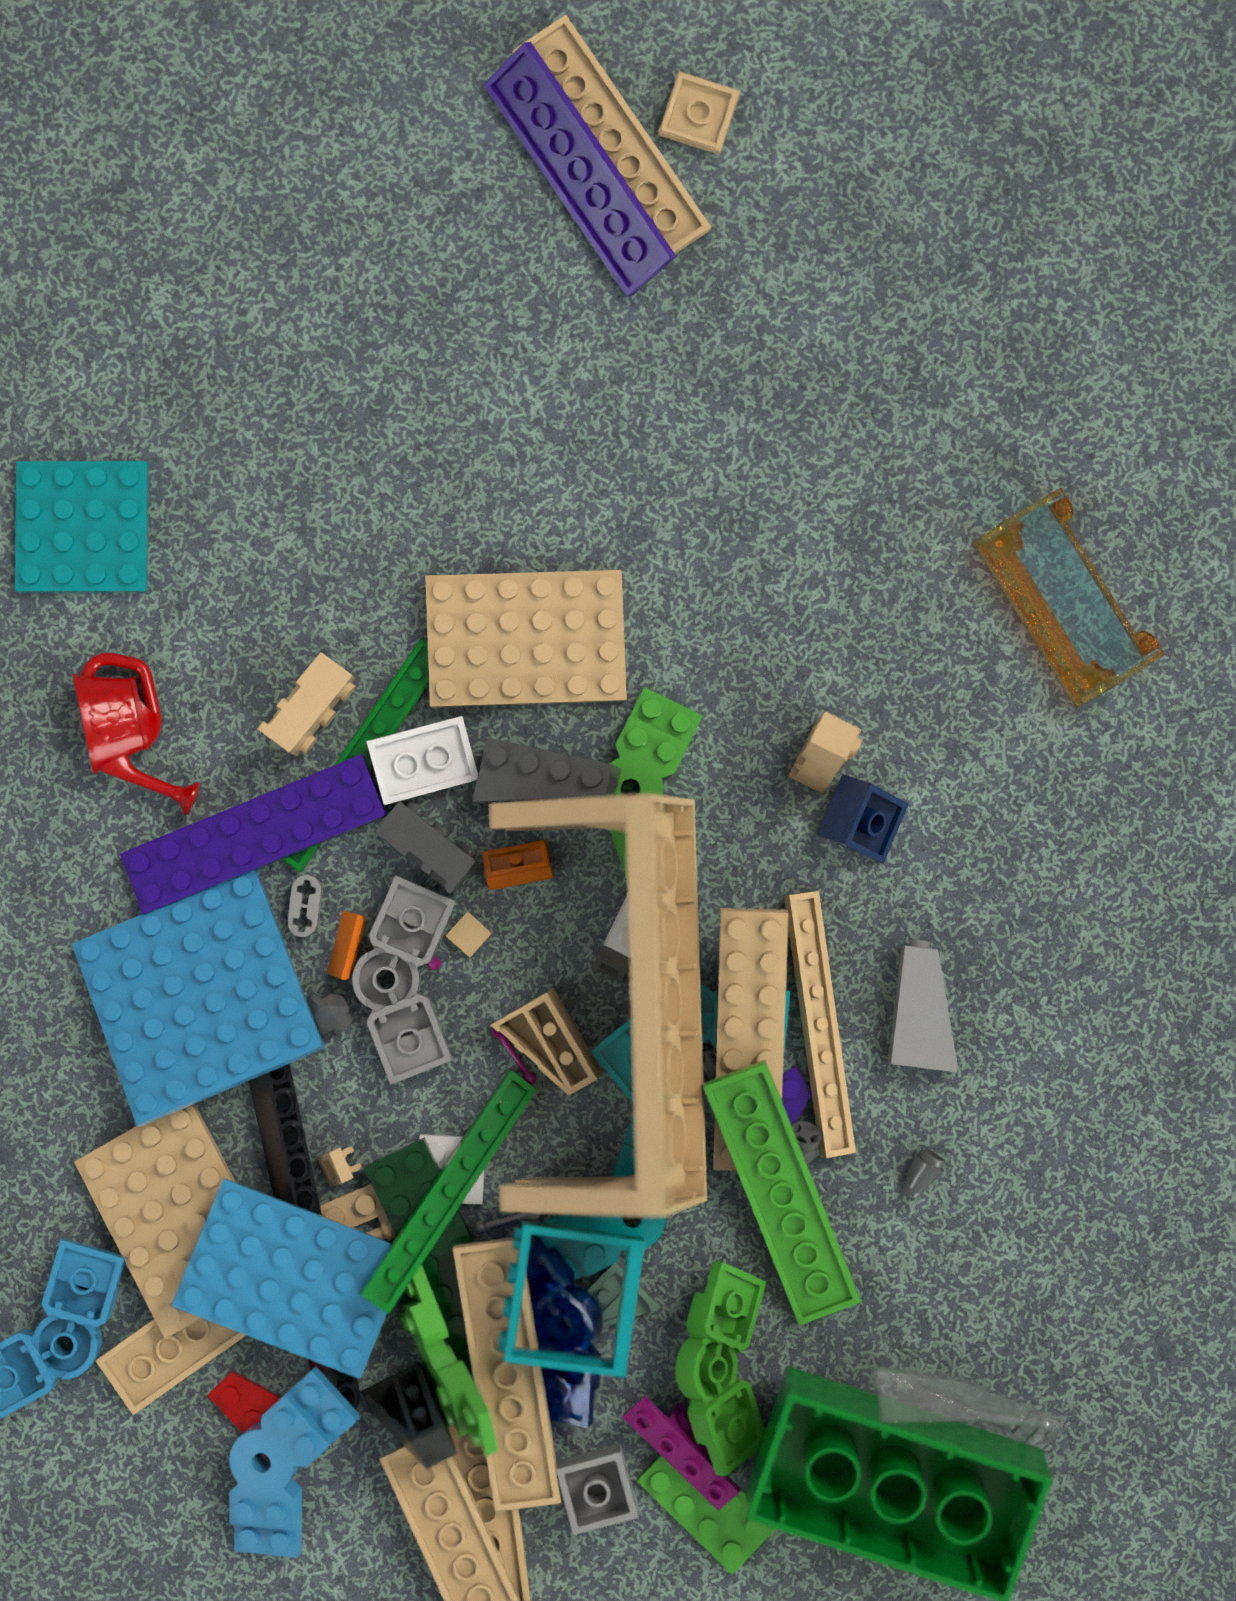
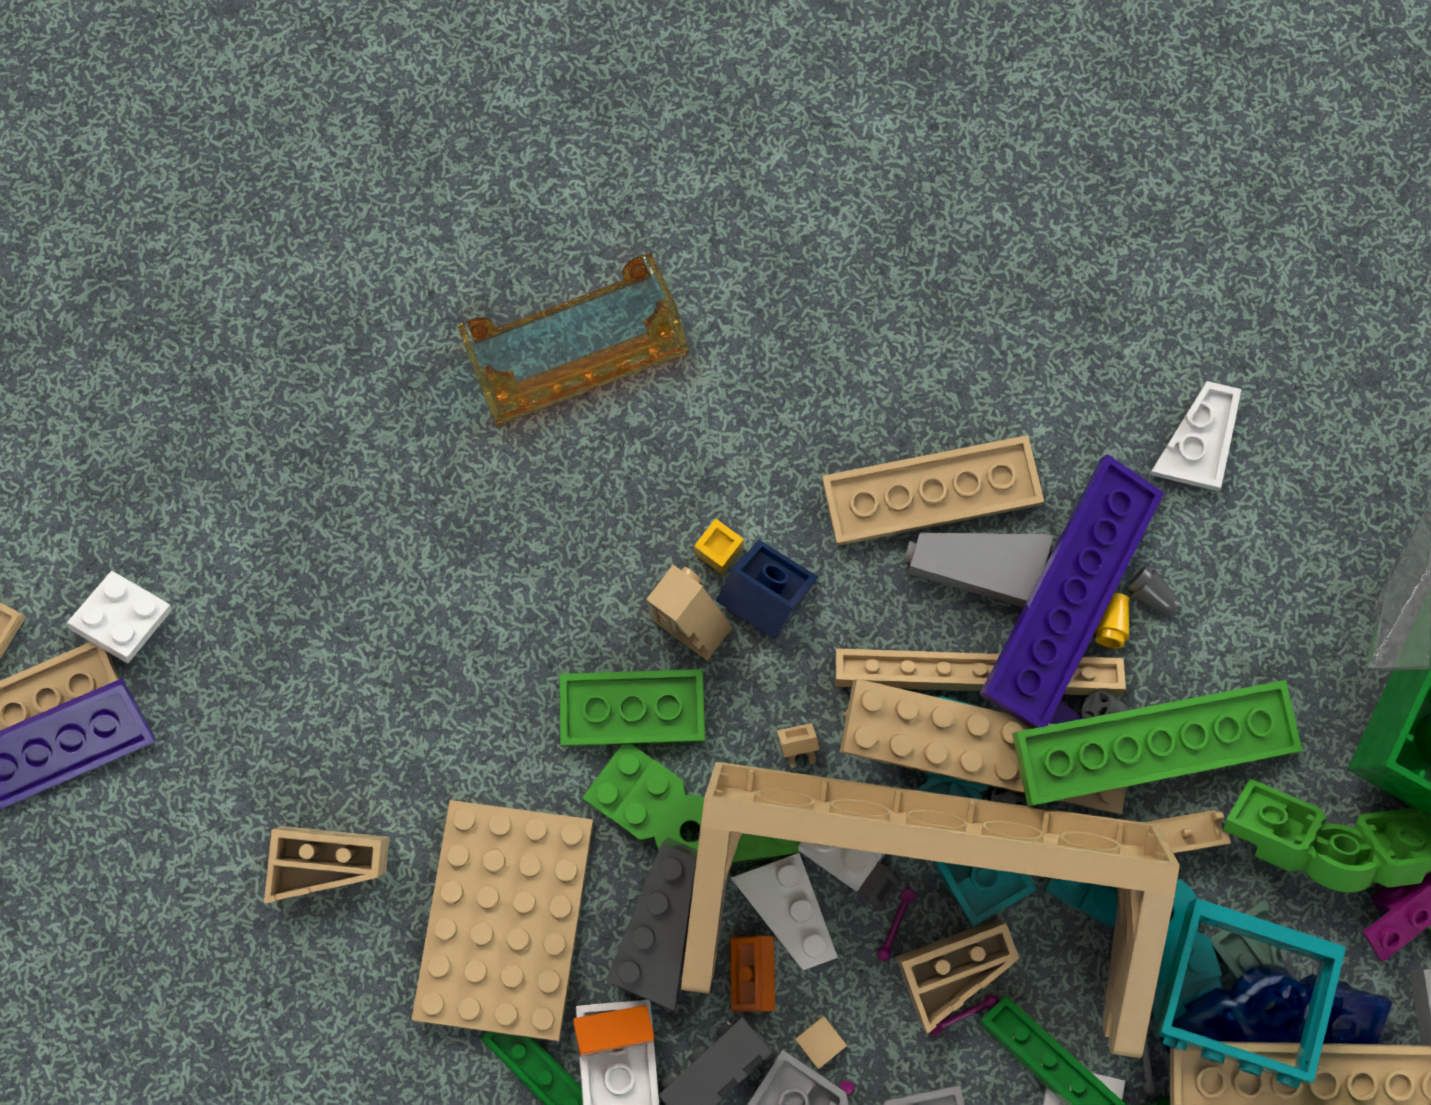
camera: 75 degrees left, 10 degrees down
(446, 752) = (613, 1030): none -> orange slope
(549, 468) = (321, 859): none -> tan wedge
(555, 977) = (907, 896): none -> magenta hinge
(580, 887) = (790, 909): none -> white wing
(707, 1232) = (1193, 831): none -> tan hinge
(728, 871) = (798, 741): none -> tan tile
(732, 716) = (632, 708): none -> bright green plate
(733, 239) = (119, 617): none -> white plate
(885, 1139) = (1114, 624): none -> yellow cone
(893, 768) = (719, 546): none -> yellow panel
(907, 1097) = (1072, 594): none -> dark purple plate
(982, 955) = (932, 490): none -> tan plate
(1076, 1199) = (1203, 439): none -> white wing

